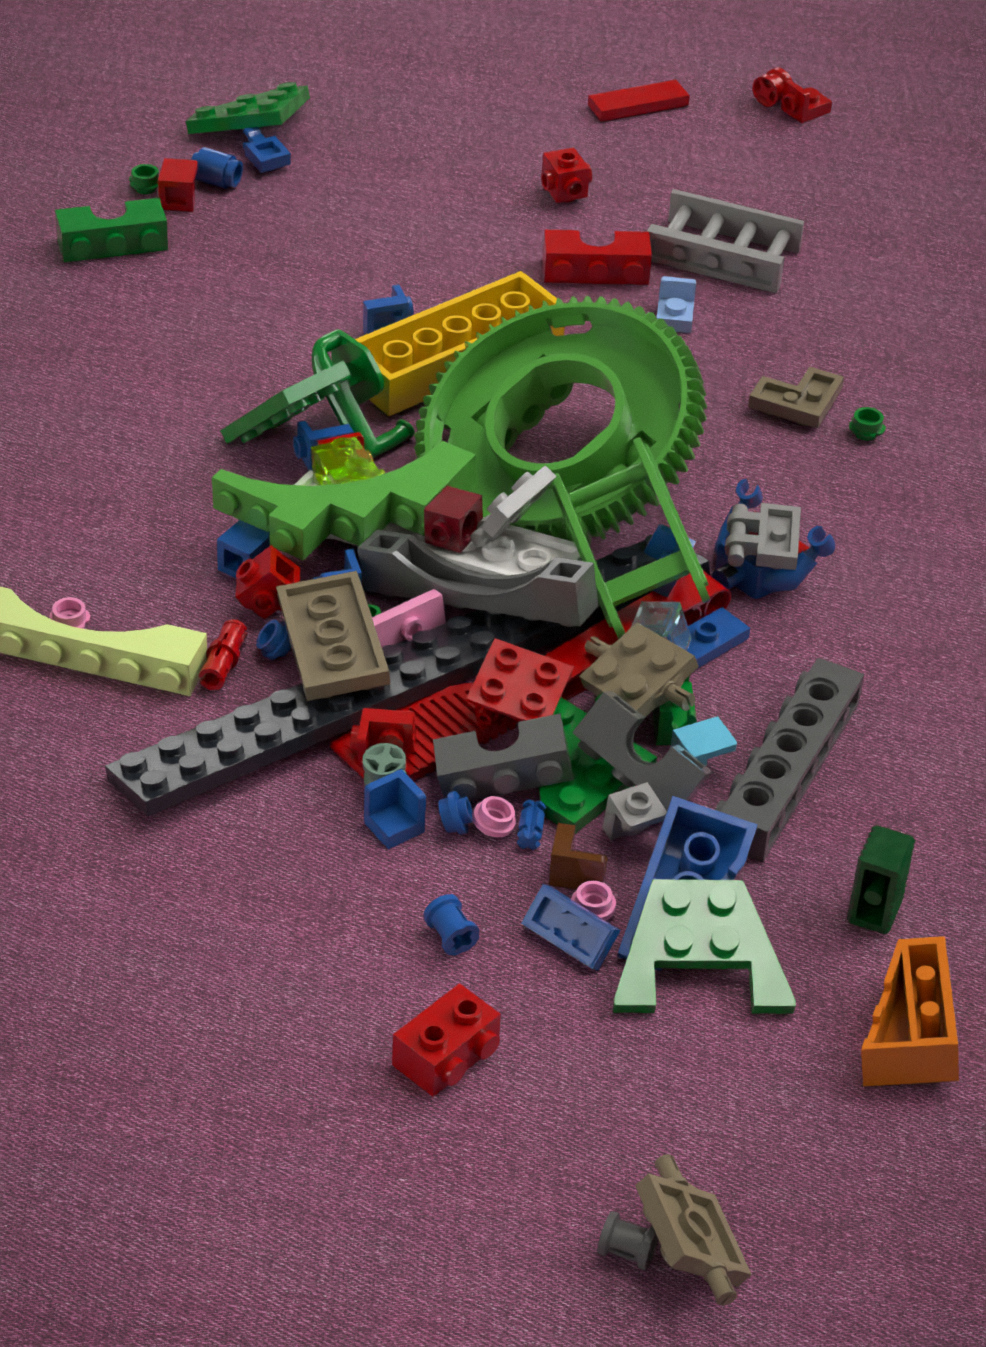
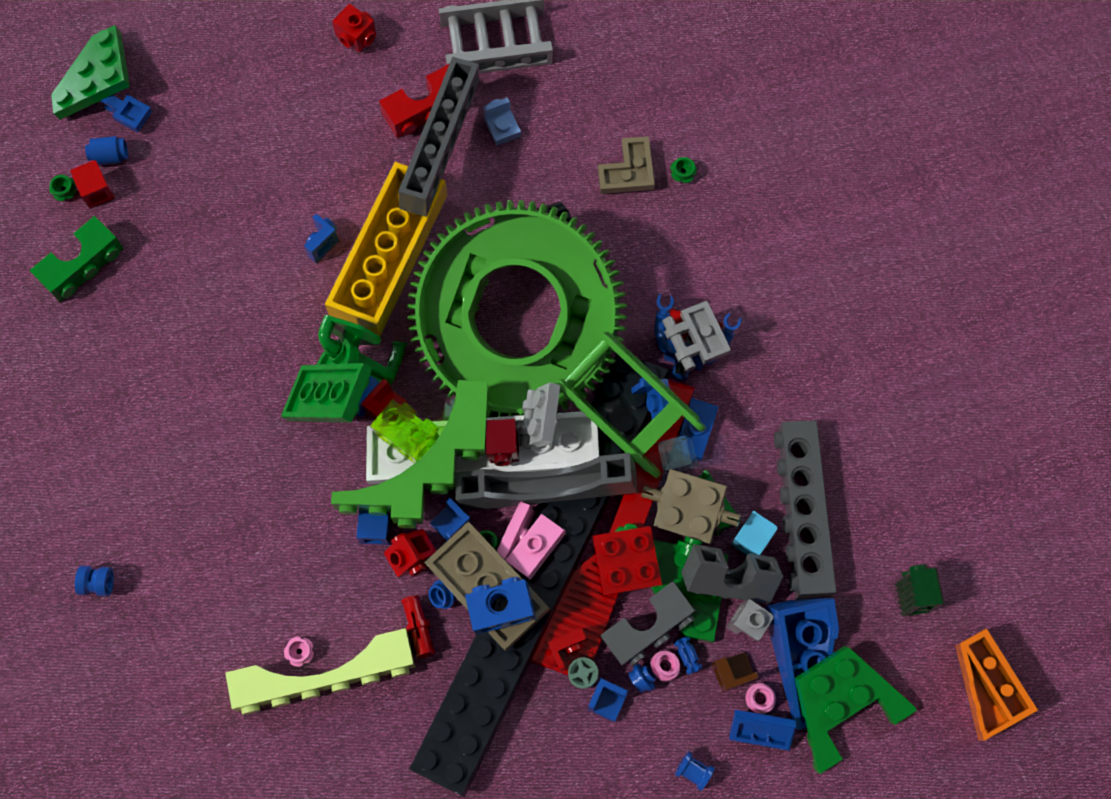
camera: 30 degrees left, 30 degrees up
(331, 637) = (518, 611): none -> blue brick
(420, 634) = (535, 546): none -> bright pink plate
(584, 257) = (438, 137): none -> dark grey brick

